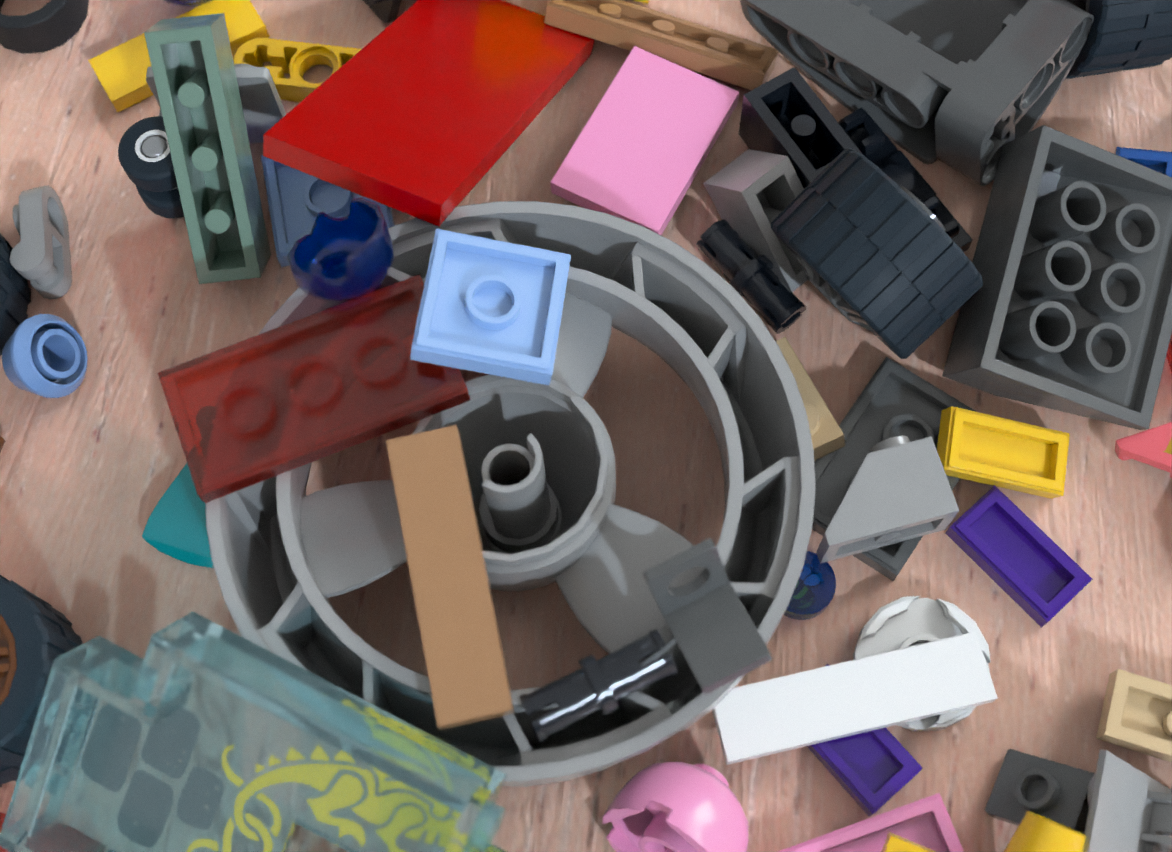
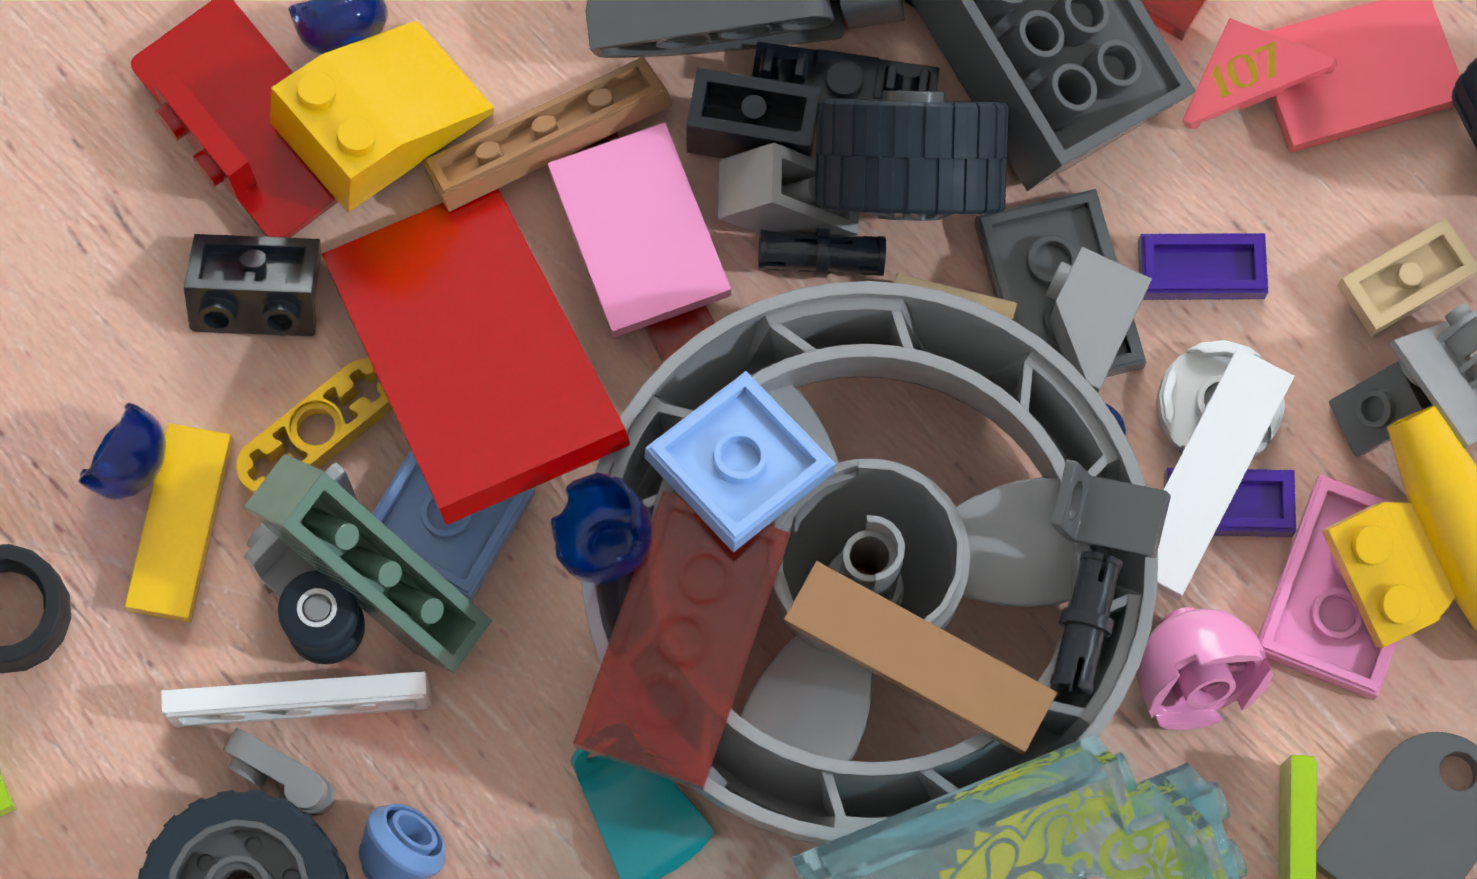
camera: 55 degrees left, 5 degrees up
(105, 210) = (296, 699): none -> white tile
(1003, 452) = (1123, 205): yellow tile -> none

